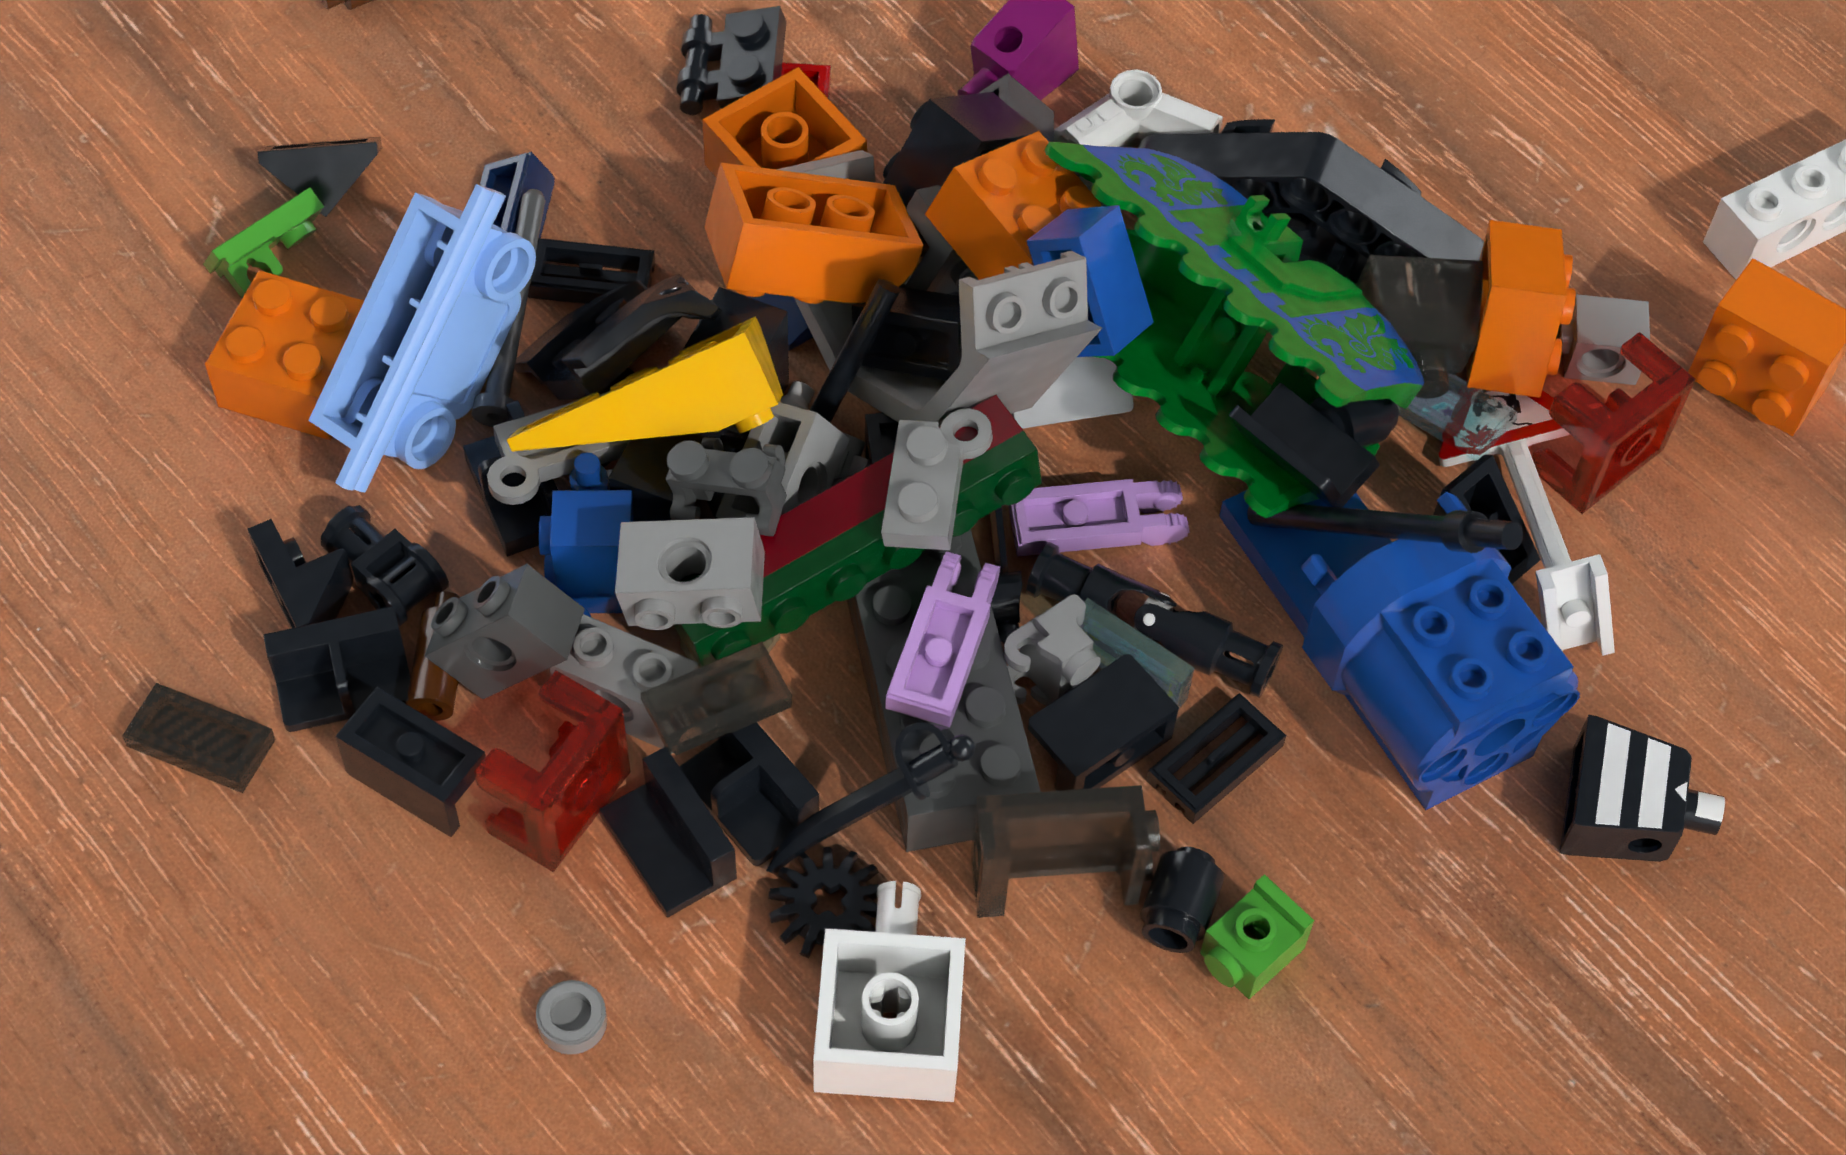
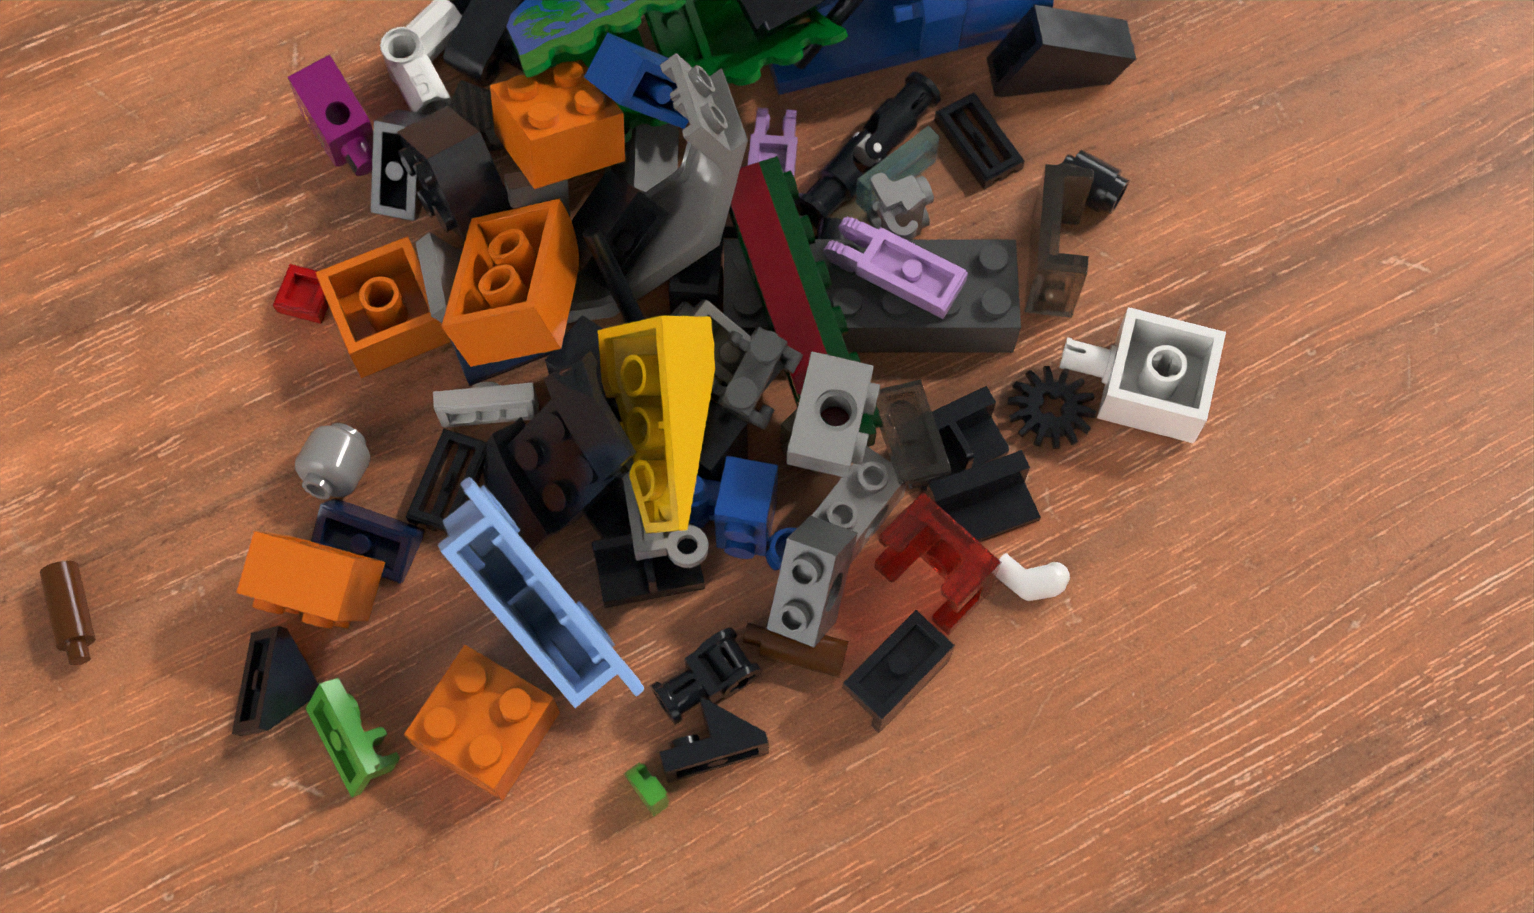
camera: 75 degrees left, 10 degrees up
(199, 737) = (829, 842): clear smoke tile -> none
(230, 533) = (648, 788): none -> bright green tile
(335, 665) = (798, 724): black panel -> none
(427, 139) = (309, 578): none -> orange brick
(490, 407) = (434, 529): dark grey bar -> none
(568, 909) = (1034, 582): none -> white arm
(571, 1017) = (1113, 594): light grey tile -> none
(587, 154) = (332, 461): none -> light grey head
(682, 259) = (486, 404): none -> white plate
(748, 51) = (267, 320): black plate -> none
(909, 777) = (1002, 339): black sword -> none
(928, 479) = (787, 233): light grey hinge -> none
(1105, 725) = (960, 198): black panel -> none
(1273, 920) = (1127, 143): bright green brick -> none
(1378, 832) = (1060, 52): none -> black slope

